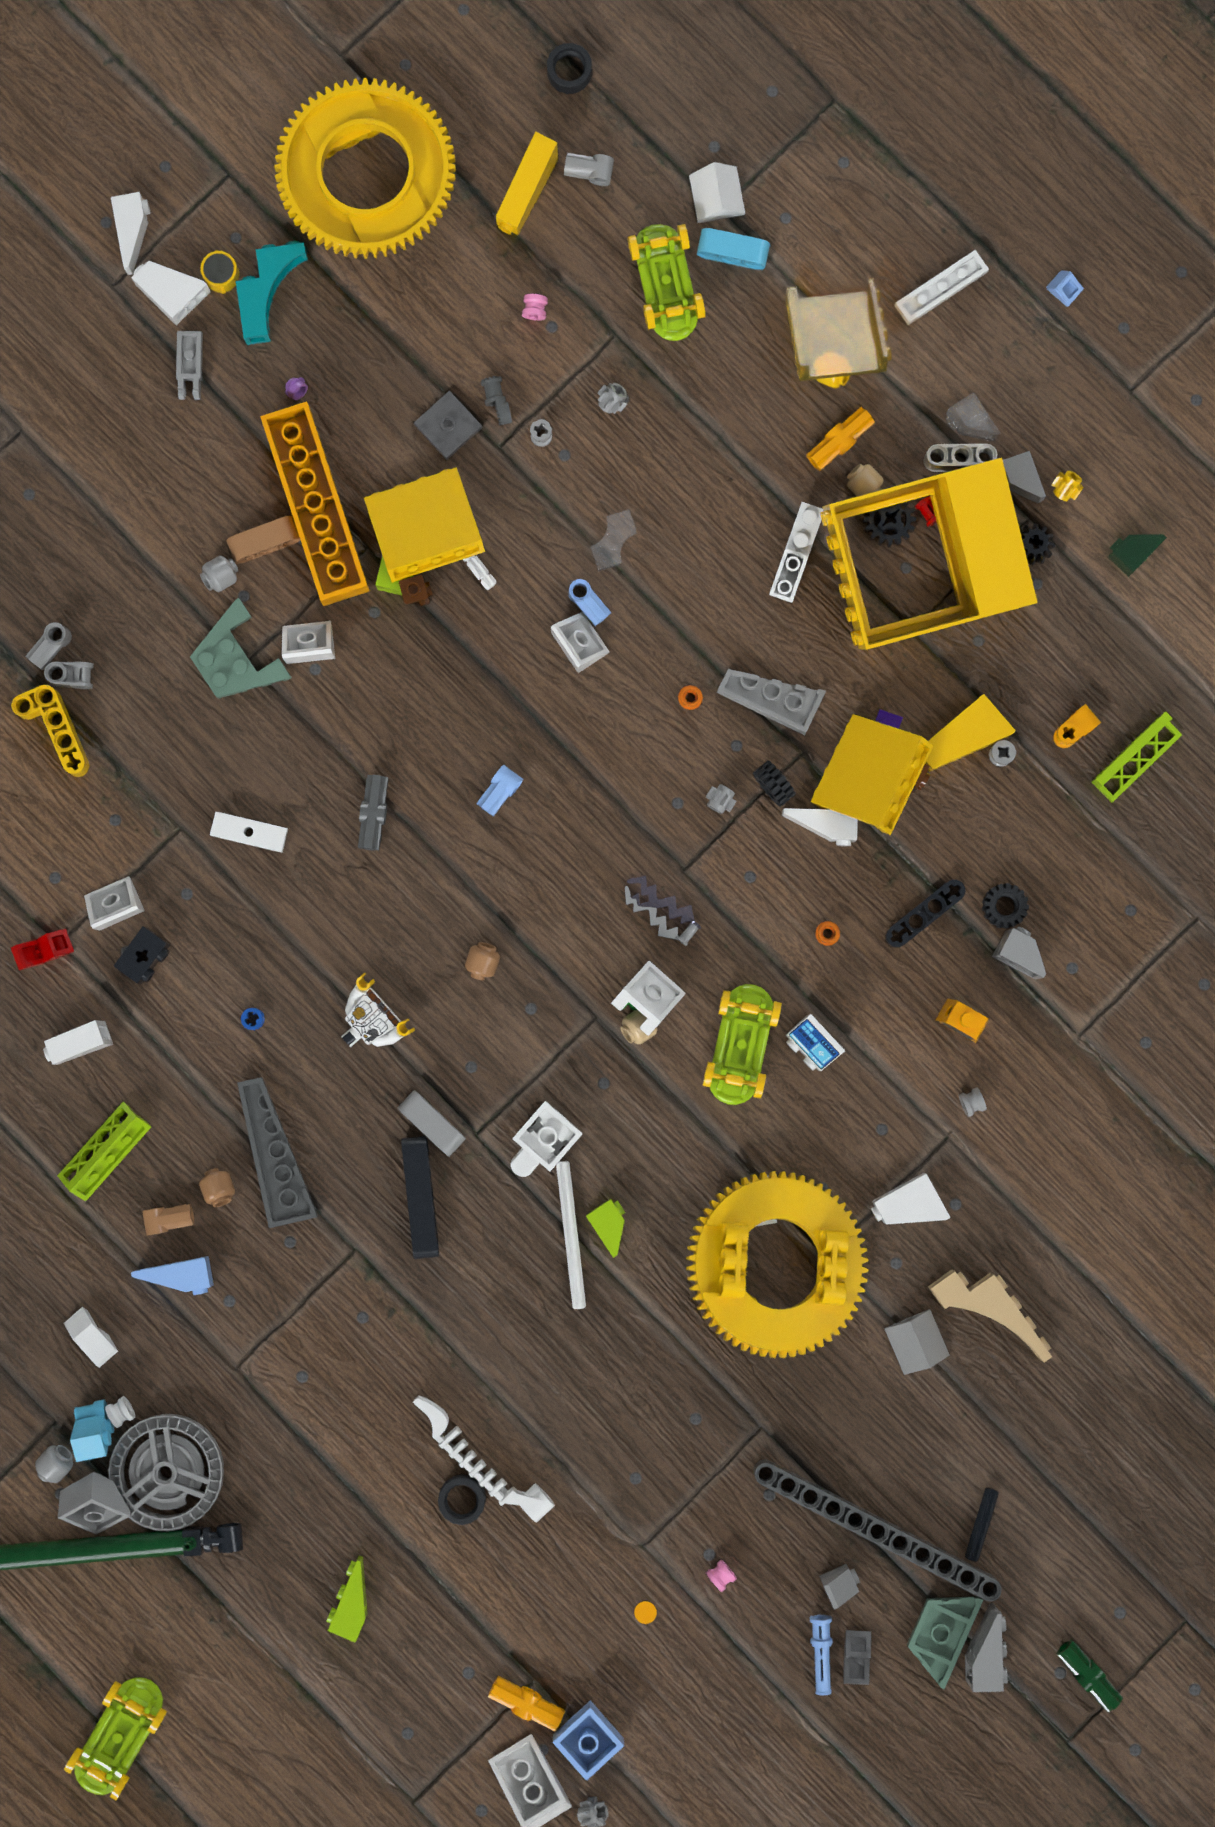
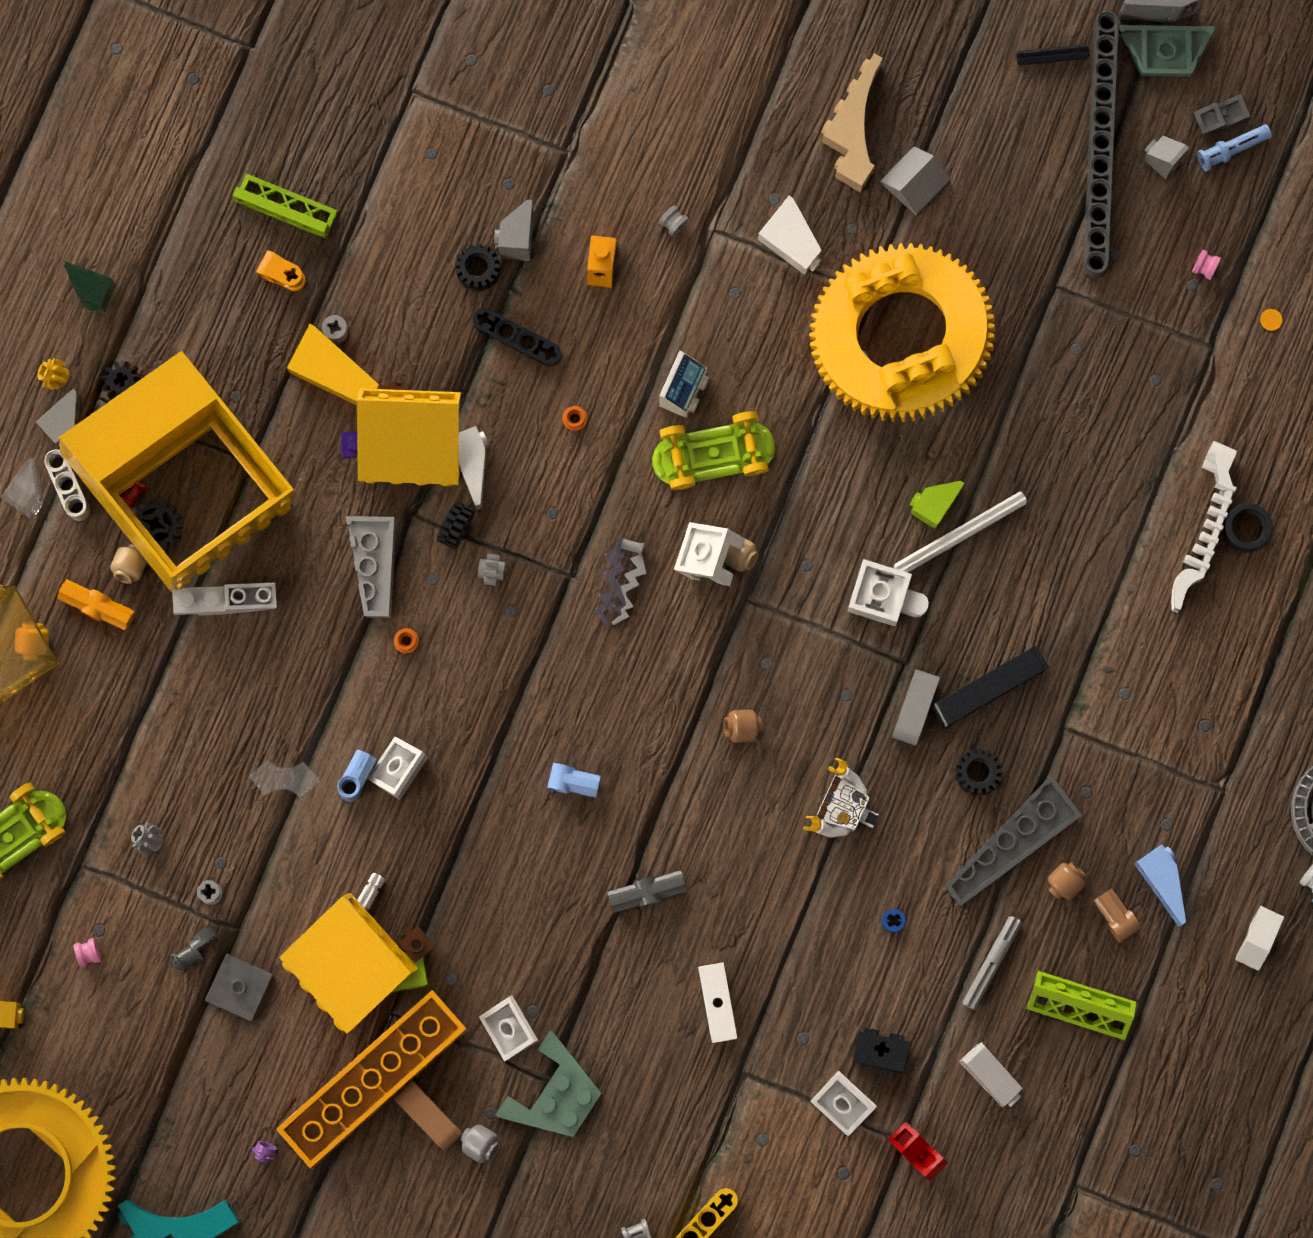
camera: 110 degrees left, 5 degrees down
(176, 1089) = (992, 962): none -> light grey axle
(338, 1164) = (991, 763): none -> black tyre

